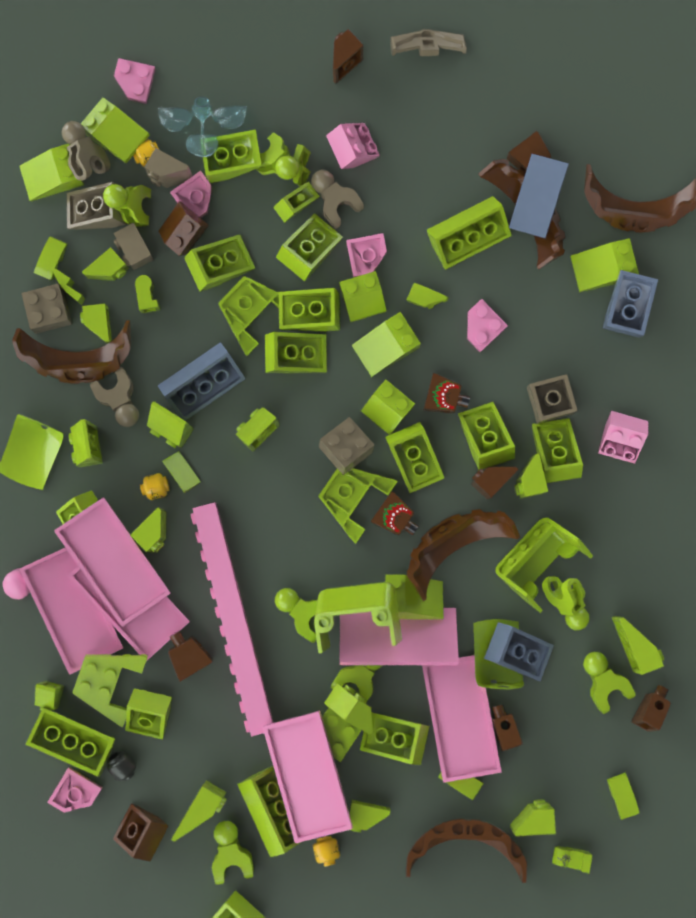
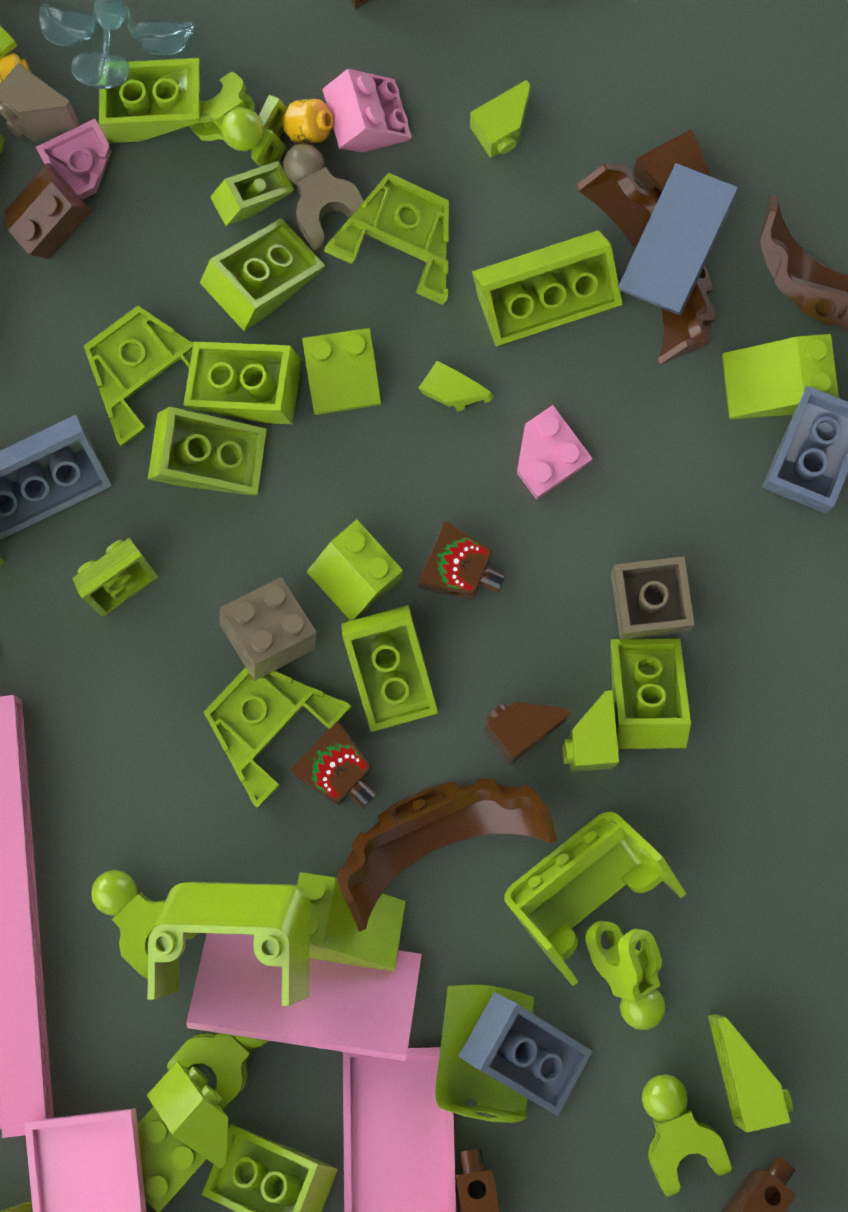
camera: 10 degrees right, 5 degrees down
(219, 262) = (99, 277): lime slope -> none
(321, 155) = (307, 121): none -> yellow head
(366, 253) = (360, 297): bright pink plate -> none
(386, 205) = (406, 220): none -> lime wing
(386, 344) = (370, 460): lime slope -> none
(428, 140) = (501, 120): none -> lime slope
(487, 436) = (525, 648): lime slope -> none
(623, 437) = (773, 686): bright pink slope -> none

